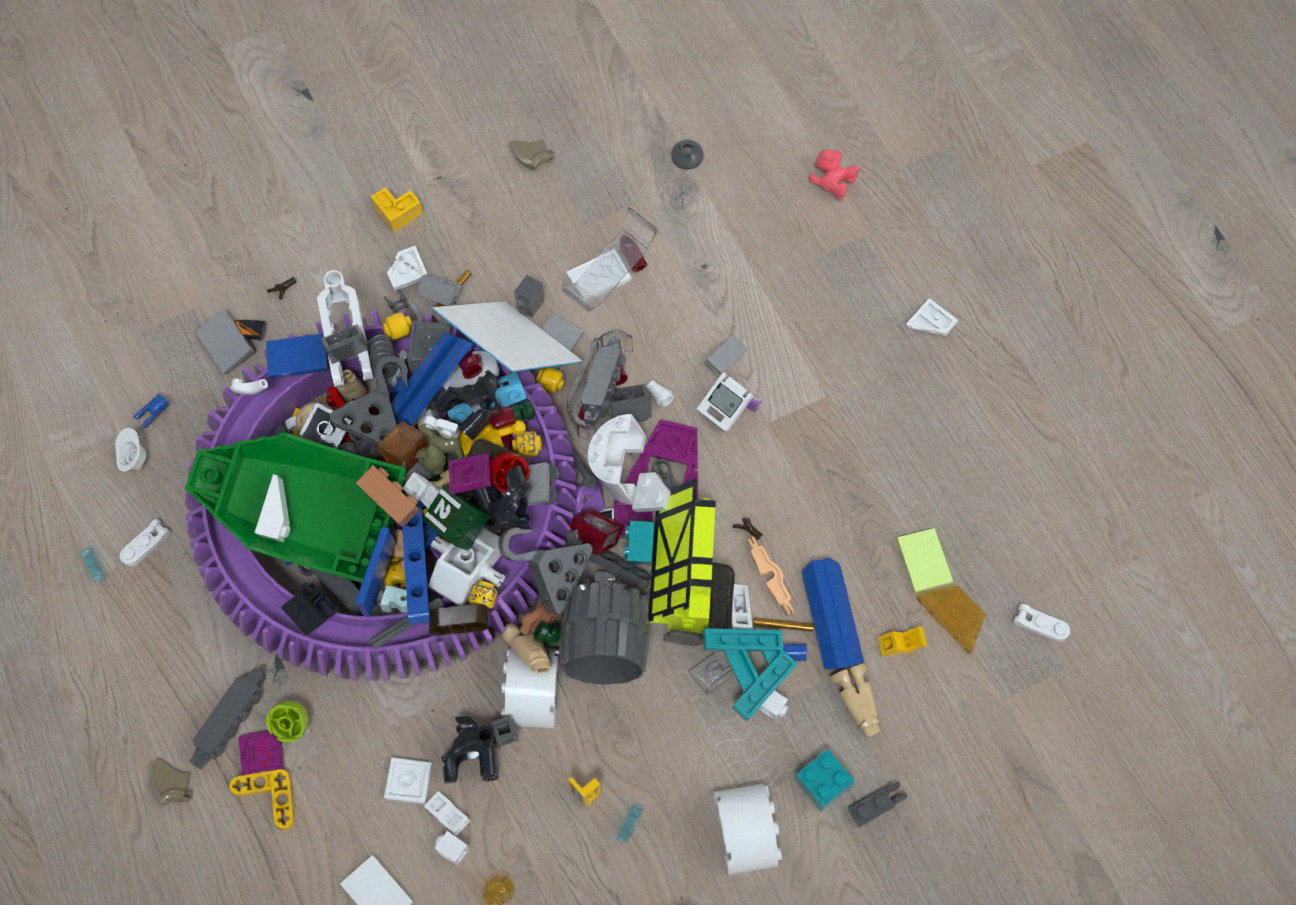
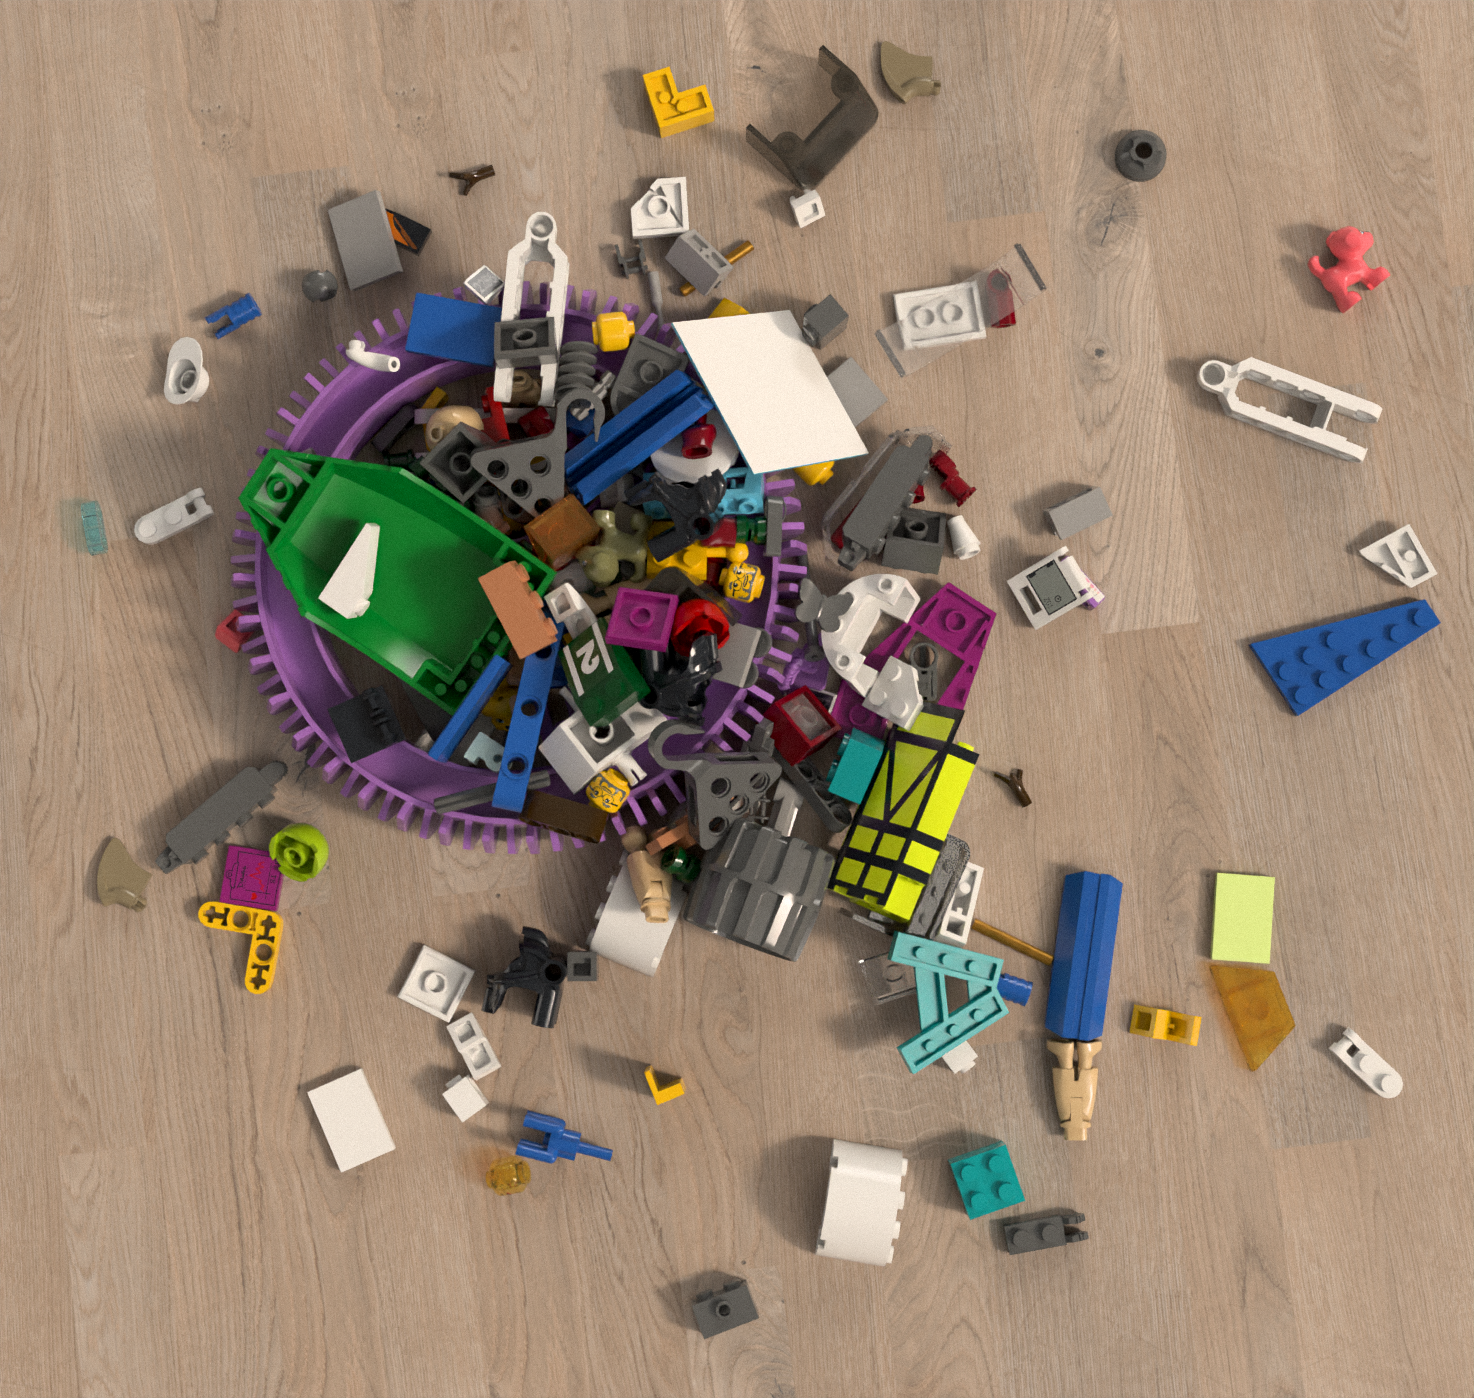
camera: 20 degrees right, 20 degrees up
(203, 375) = (319, 286): none -> dark grey piece
(203, 601) = (228, 634): none -> coral slope
(307, 325) = (484, 285): none -> slope
(445, 428) = (631, 533): white plate -> none
(490, 211) = (812, 160): none -> clear smoke windscreen
(496, 240) = (807, 208): none -> white tile
(525, 855) = (557, 1141): none -> blue plant
(532, 394) = (774, 512): none -> dark grey piece
(583, 448) = (820, 607): none -> dark grey animal
(629, 824) = (708, 1146): clear light blue beam -> none
(634, 357) = (953, 482): none -> dark red connector
(774, 585) = (1021, 882): light nougat piece -> none
(830, 245) = (1224, 378): none -> white piece
(912, 391) = (1325, 658): none -> blue wing

